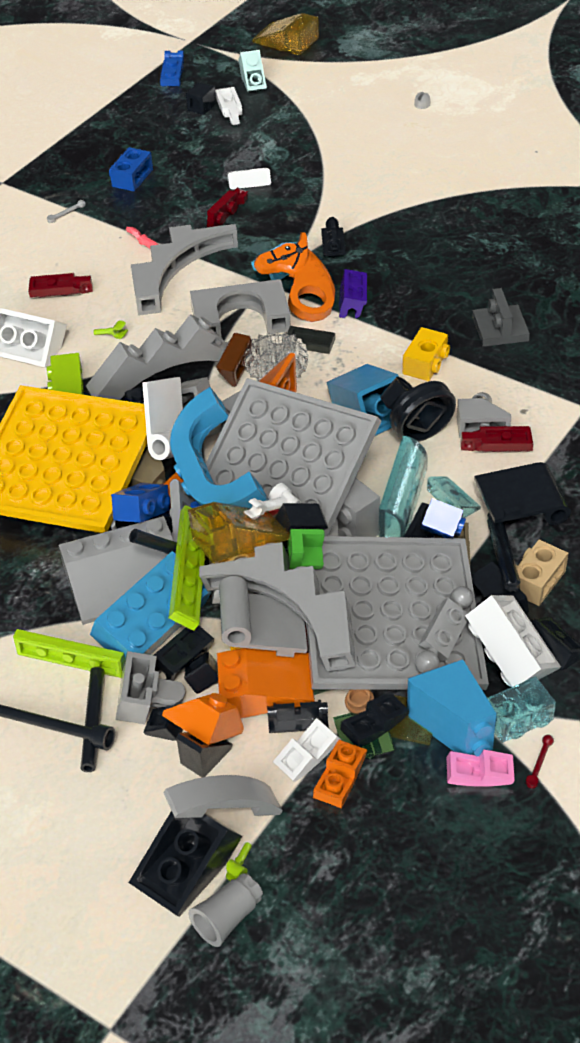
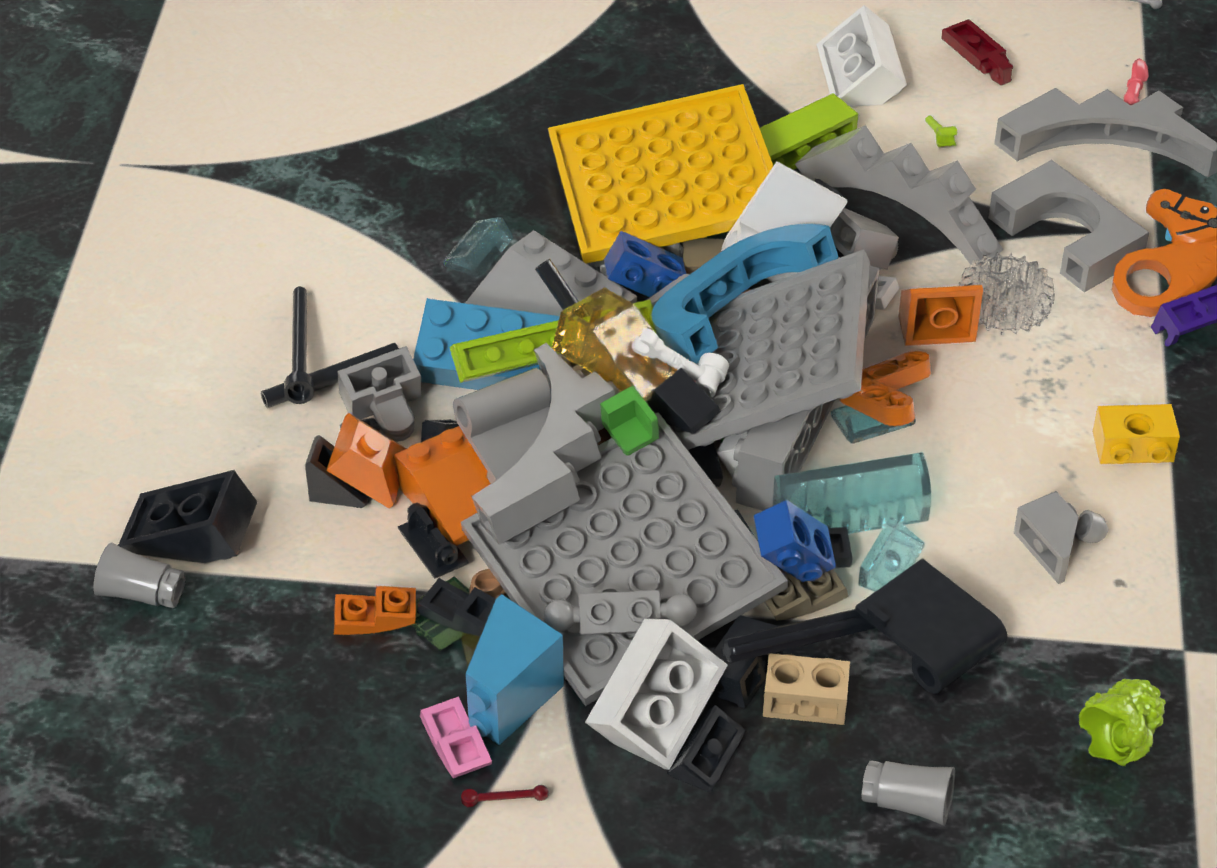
camera: 60 degrees right, 0 degrees up
(27, 590) = (479, 247): none -> clear light blue slope
(68, 653) = (399, 304): lime tile -> none
(182, 651) = (439, 393): black hinge -> none
(221, 791) = (264, 509): light grey slope -> none
(232, 361) = (956, 252): reddish brown slope -> none
(234, 867) = (197, 568): lime hand -> none
(307, 752) = (383, 567): white slope -> none
(314, 339) = (1078, 315): pearl dark grey tile -> none
(362, 392) = (995, 409): dark azure slope -> none
(428, 401) = (983, 426): black piece -> none
(498, 439) = (1030, 569): dark red hinge -> none
(526, 707) = (561, 742): clear light blue brick -> none

